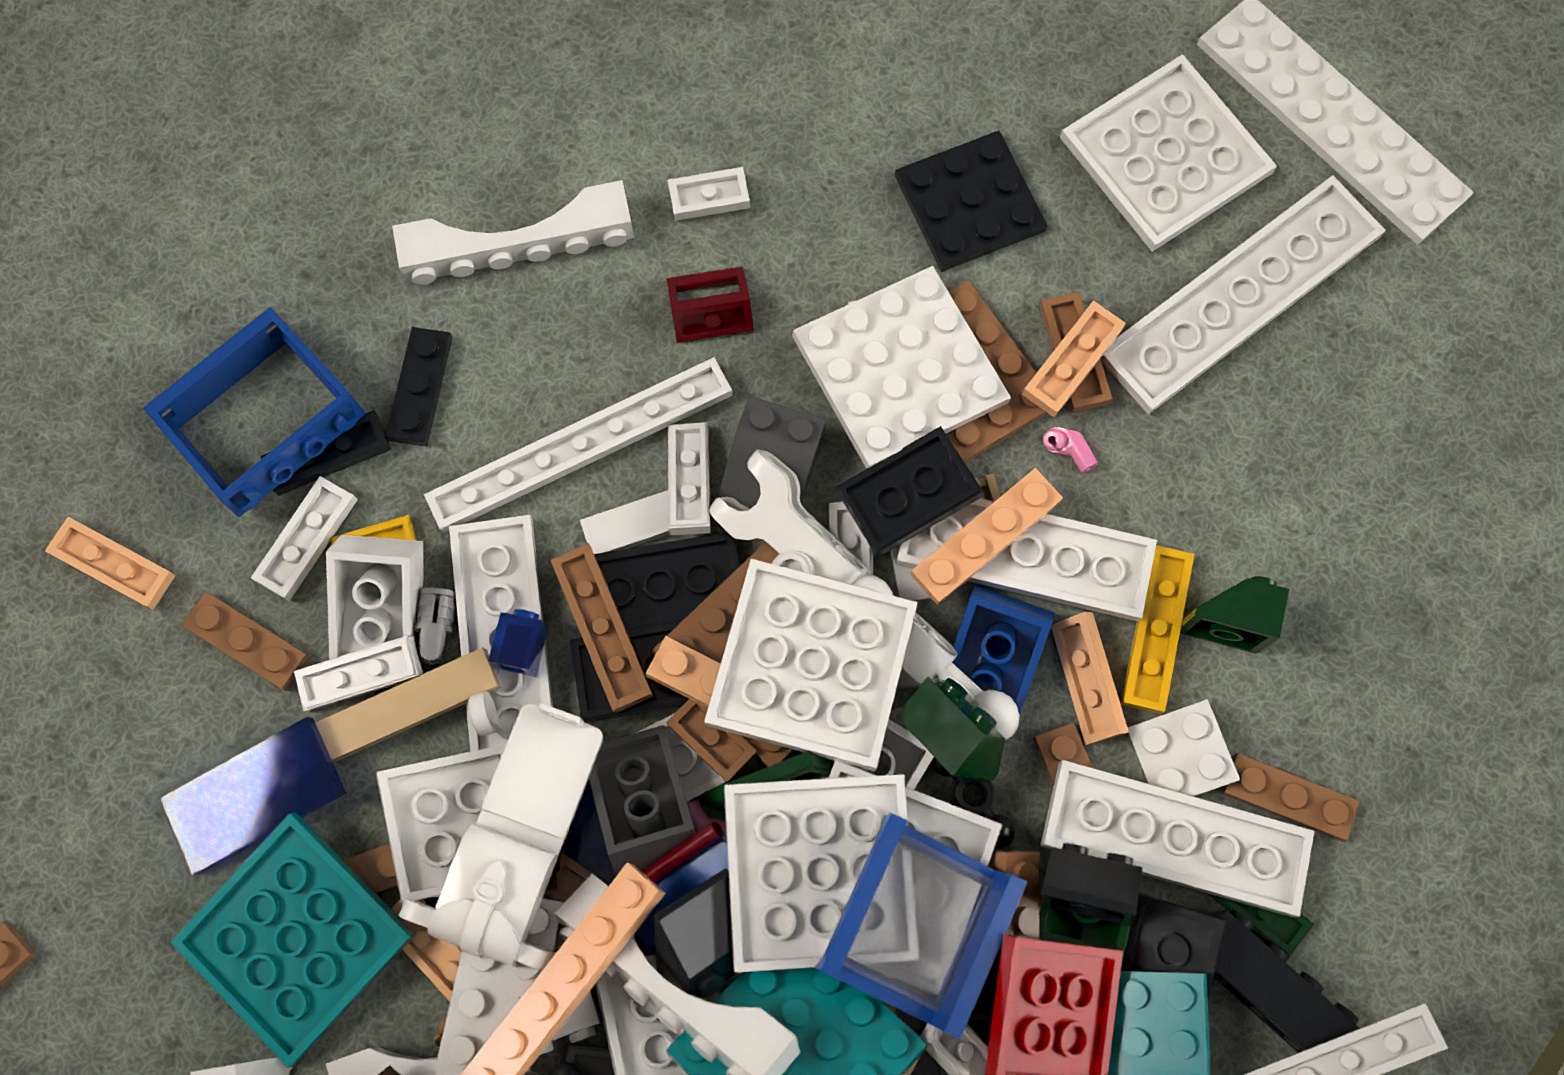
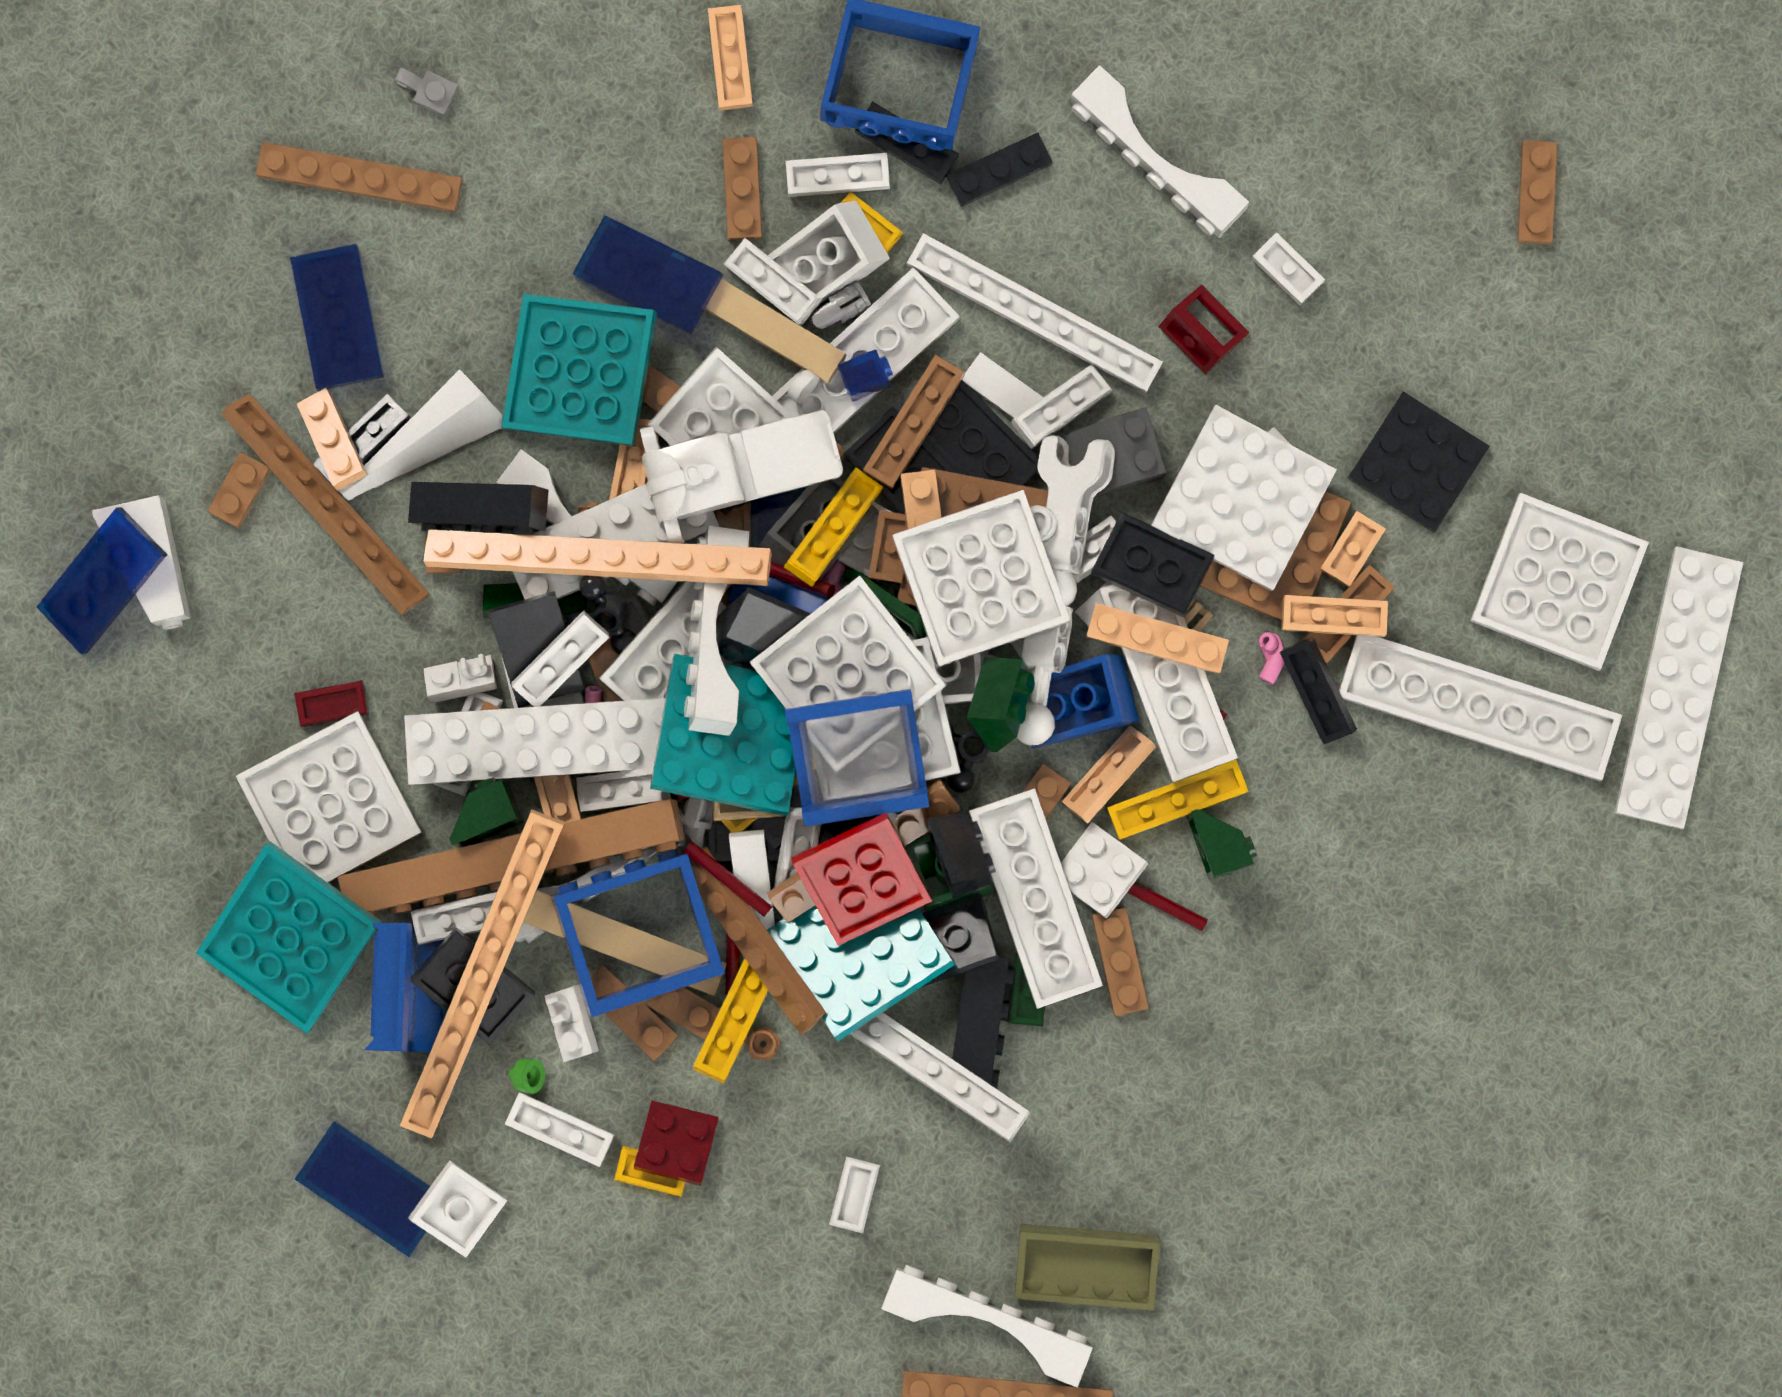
camera: 60 degrees right, 10 degrees up
(651, 782) = (833, 527): none -> yellow tile
(1015, 306) = (1352, 549): none -> light nougat plate
(1135, 423) = (1318, 690): none -> black plate
(1262, 709) = (1168, 906): none -> dark red bar

